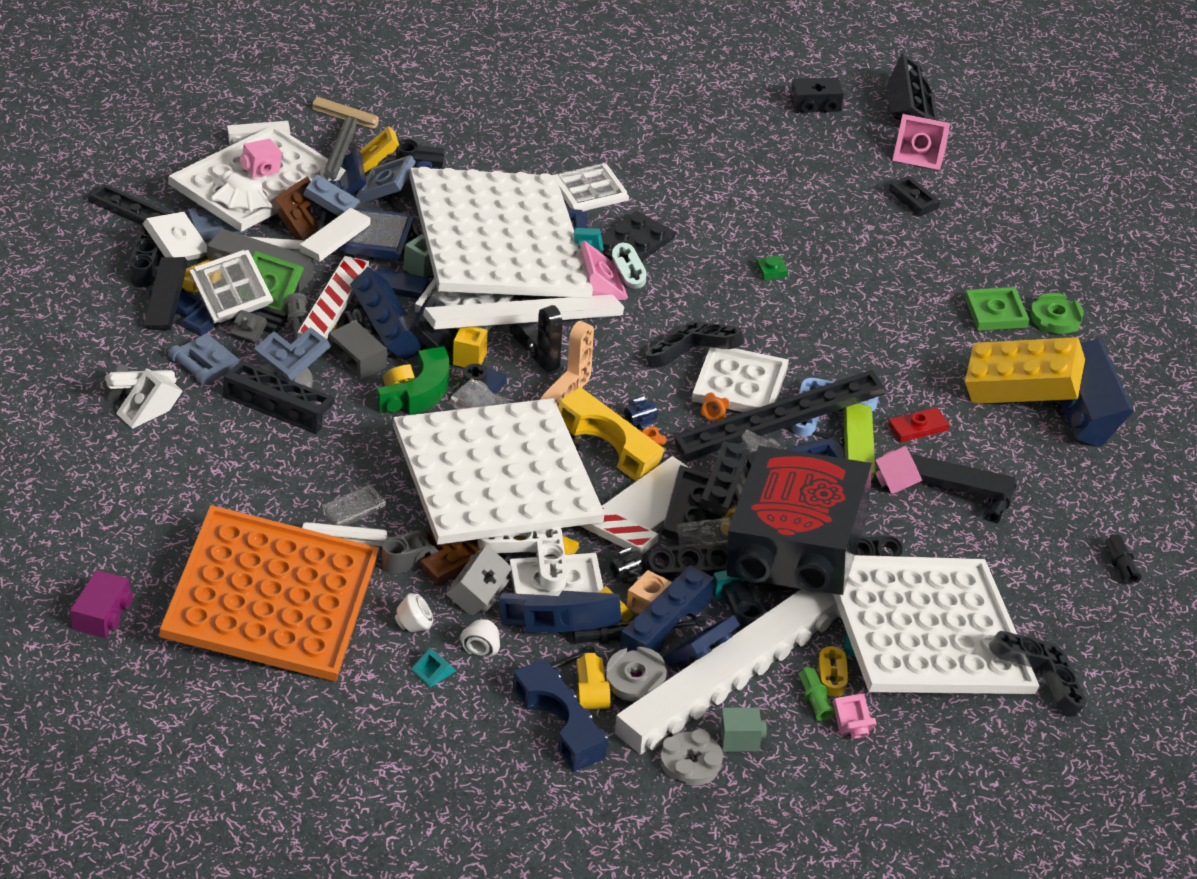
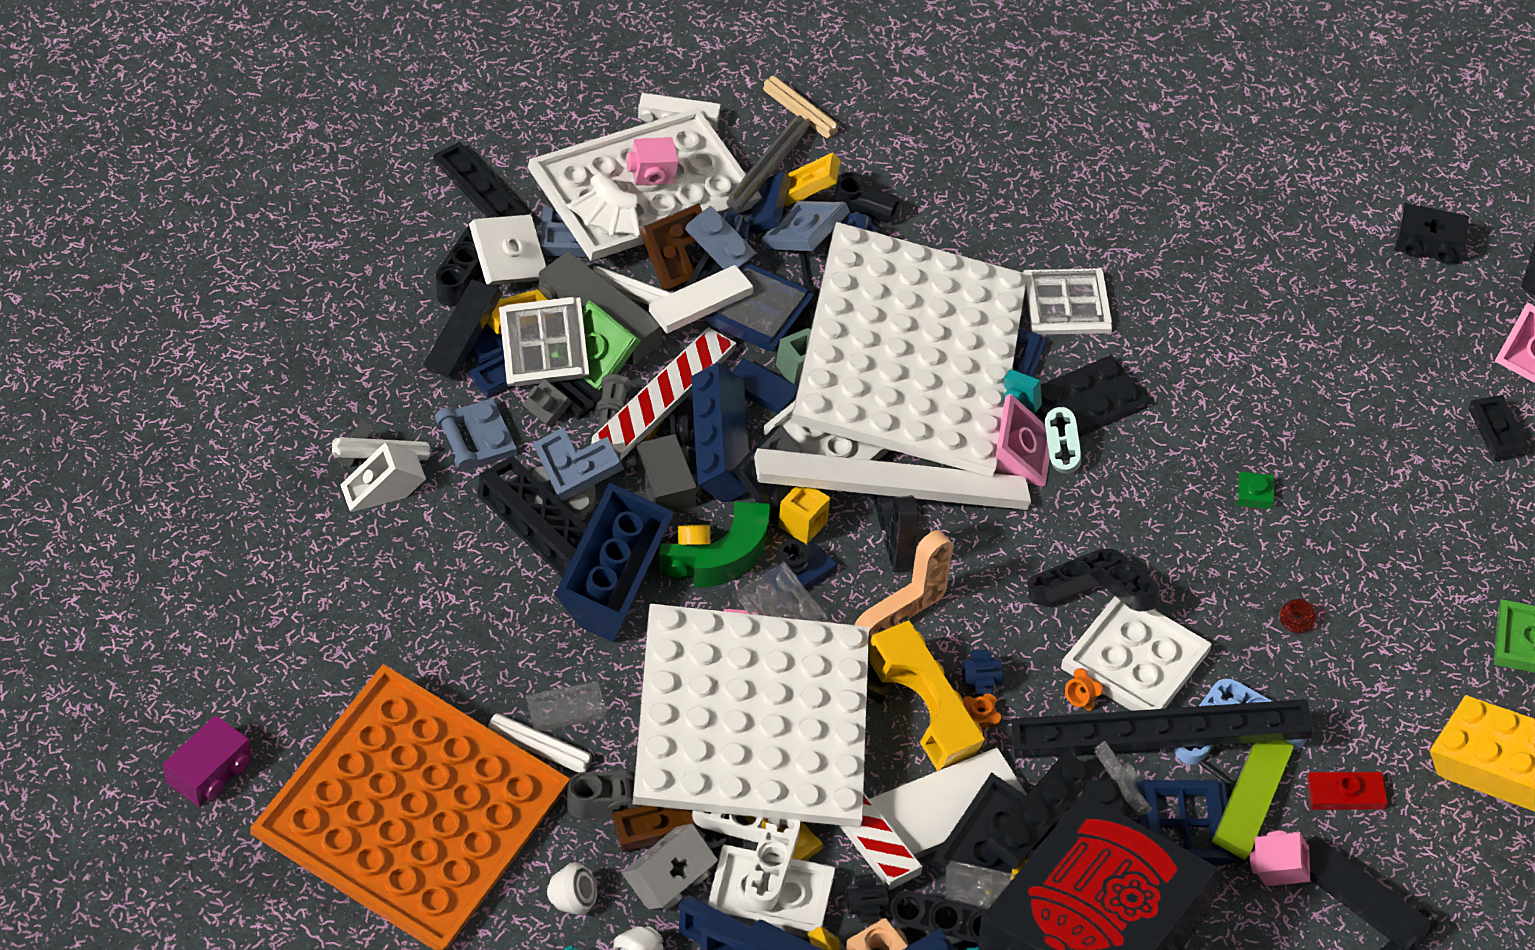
camera: 20 degrees right, 10 degrees up
(349, 406) = (612, 560): none -> dark blue slope
(836, 332) = (1301, 608): none -> clear red plate

